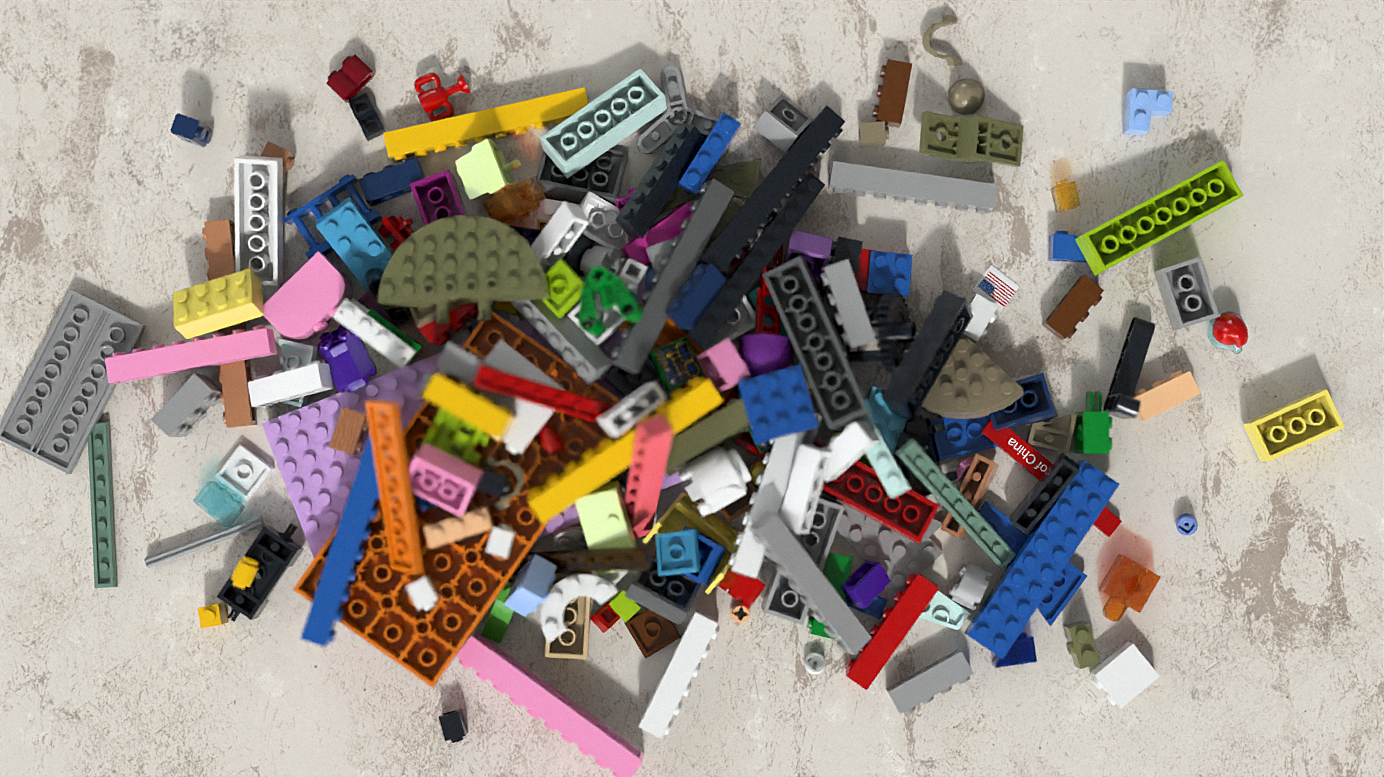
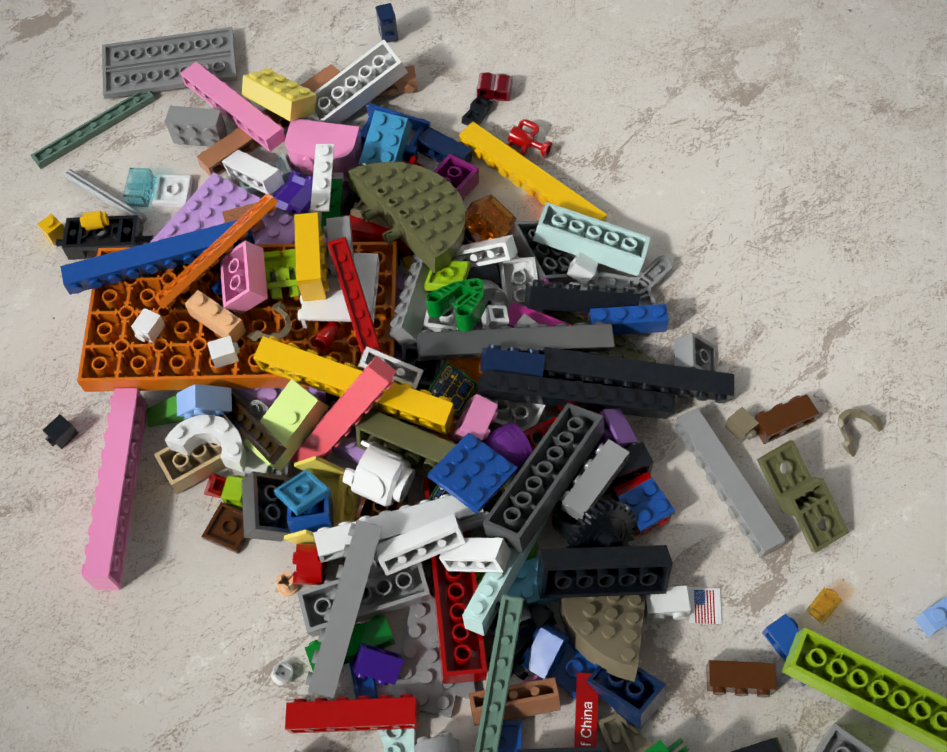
camera: 55 degrees right, 25 degrees down
(485, 170) = (501, 183): yellowish green piece -> none
(494, 483) = (266, 318): black brick -> none
(625, 153) = (583, 268): none -> white brick
(678, 673) = (203, 564): white brick -> none
(952, 447) = (545, 651): none -> brick
(966, 96) = (834, 474): dark tan helmet -> none

